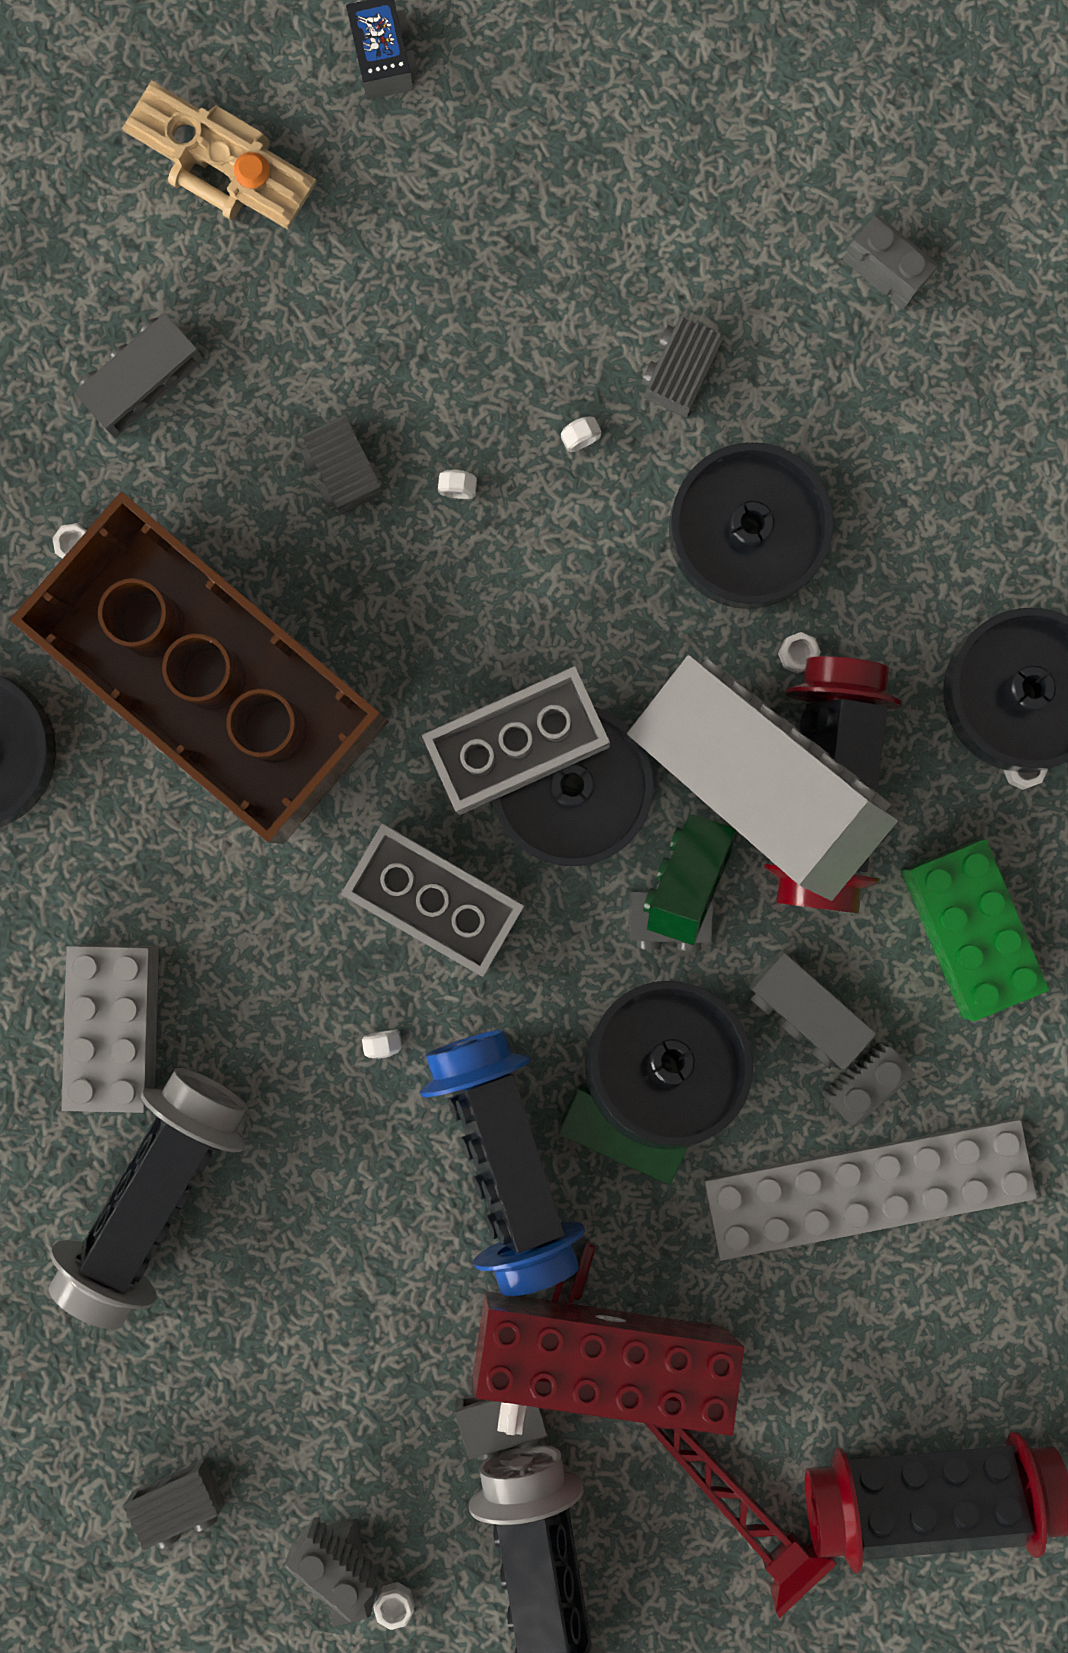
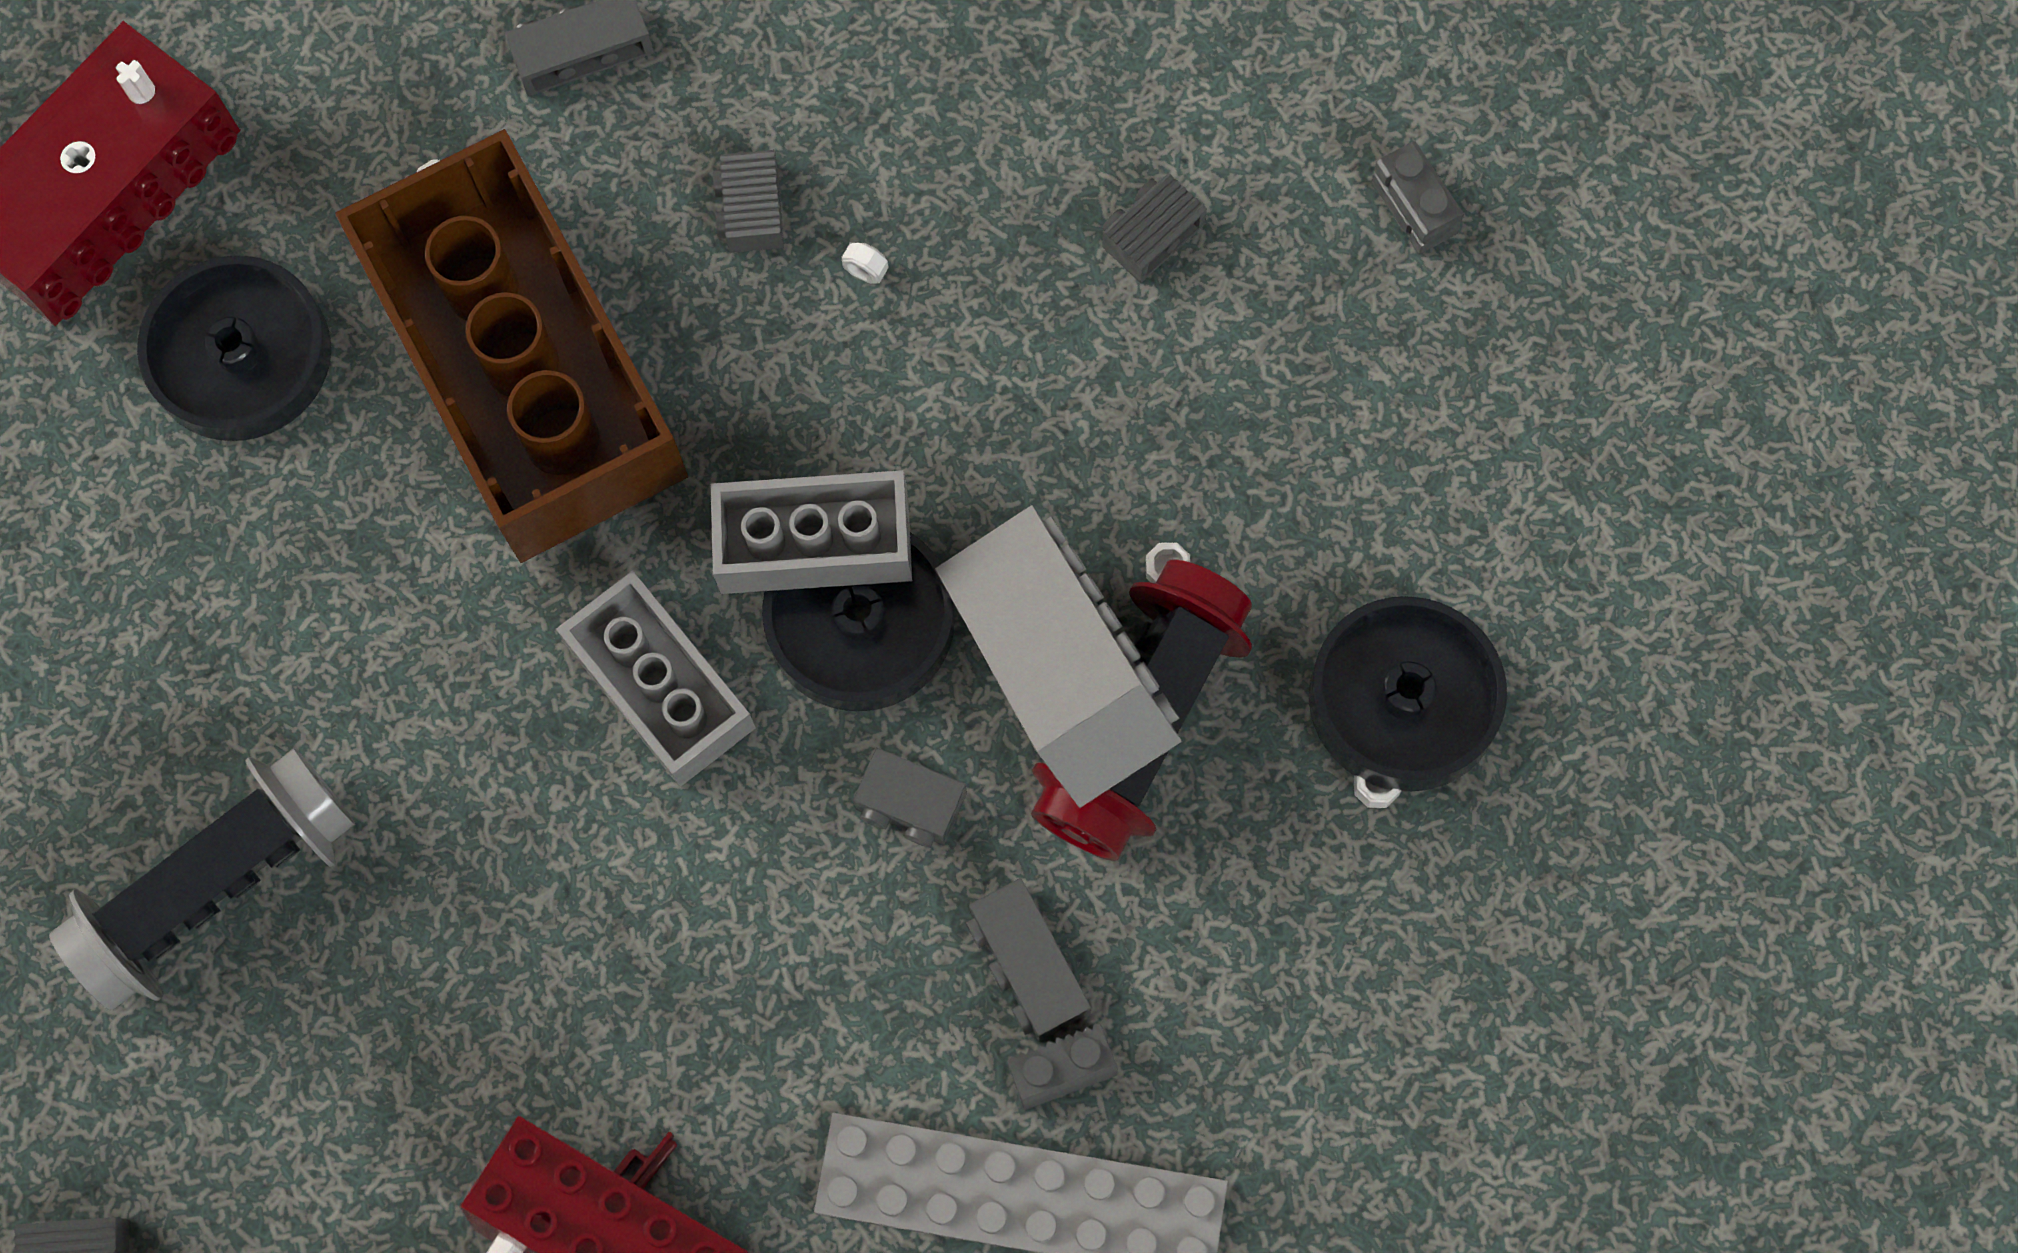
camera: 25 degrees right, 15 degrees down
(109, 1027) = (247, 686): light grey brick -> none
(382, 1044) = (534, 818): white tile -> none
(533, 1242) = (621, 883): brick -> none
(580, 433) = (1017, 257): white tile -> none
(589, 1128) = (762, 1018): dark green brick -> none
(663, 1106) = (809, 987): black piece -> none
(689, 879) = (944, 752): dark green brick -> none
(756, 484) = (1174, 368): black piece -> none
(974, 930) = (1250, 936): green brick -> none

